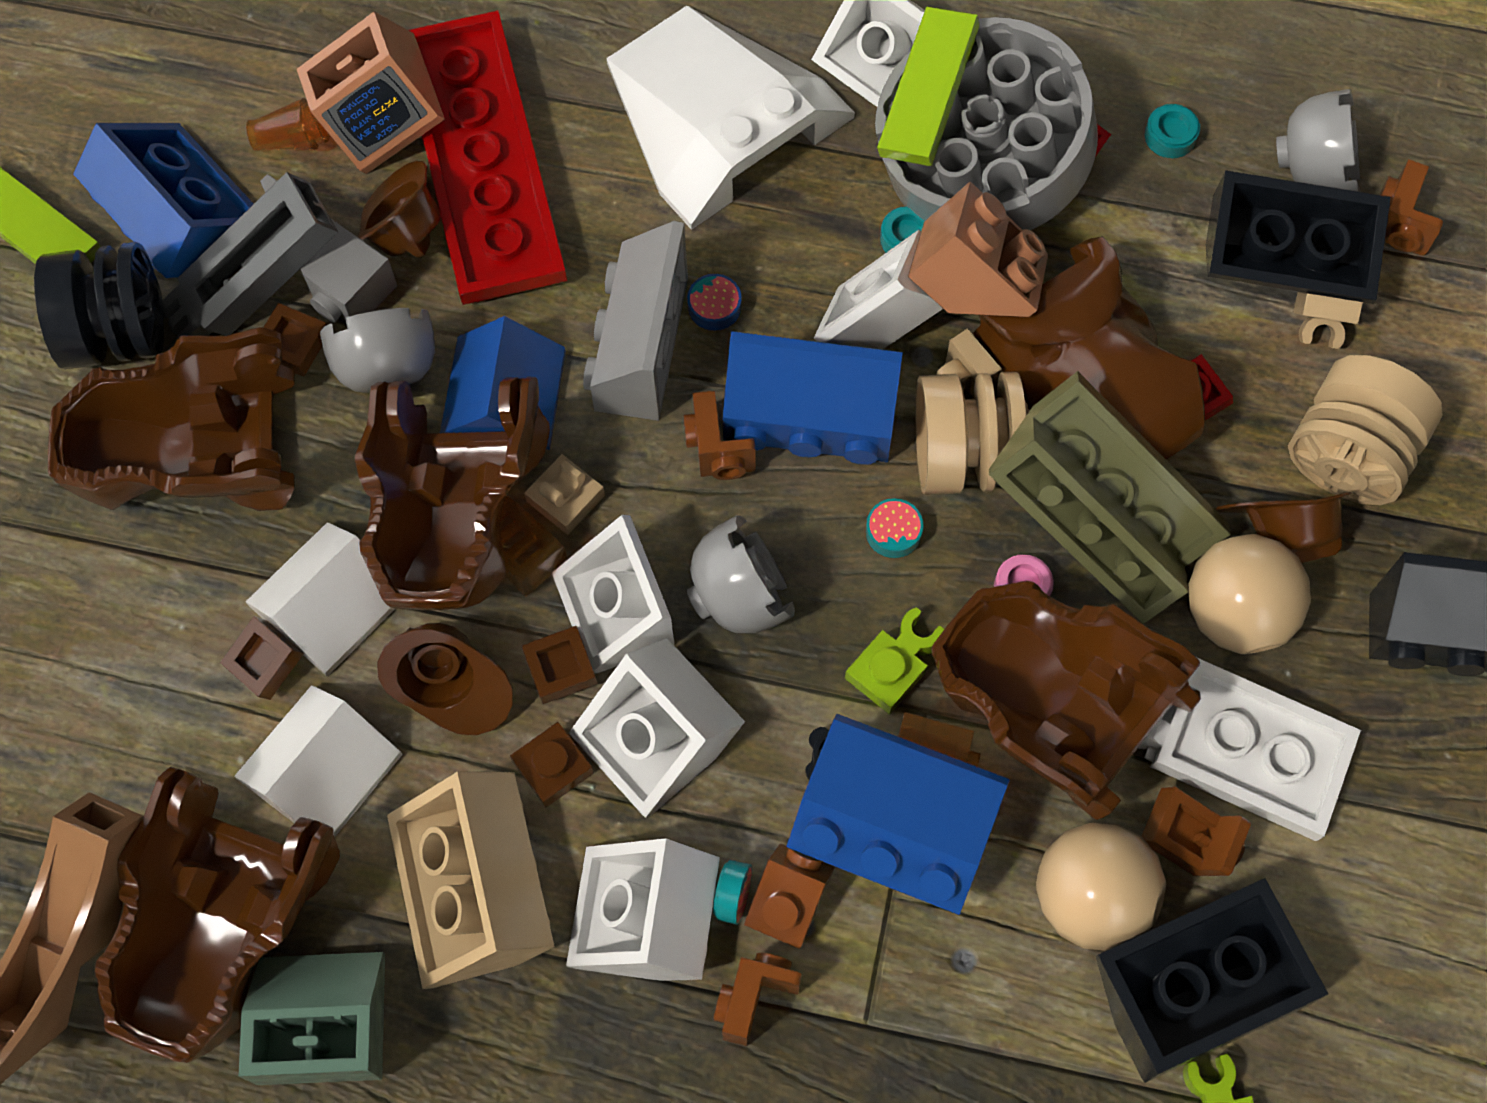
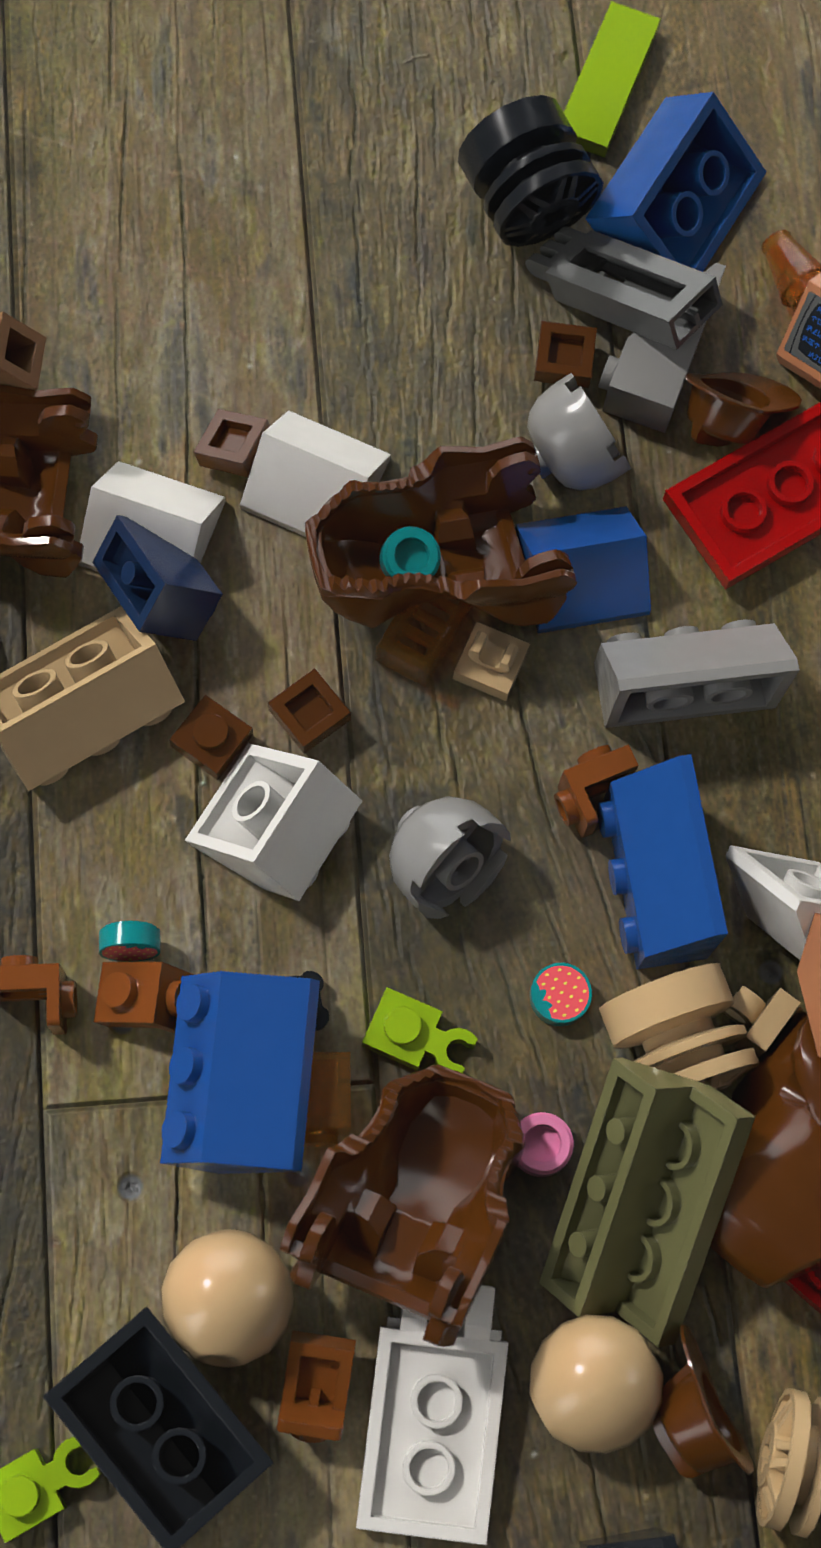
camera: 65 degrees right, 5 degrees up
(181, 425) = (431, 286): reddish brown animal -> none
(381, 765) = (156, 581): none -> dark blue slope
(445, 679) = (262, 605): reddish brown piece -> none
(447, 523) = (410, 551): none -> teal tile
(613, 596) = (393, 742): white slope -> none
(644, 910) = (86, 865): white slope -> none
(714, 302) = (753, 741): tile -> none

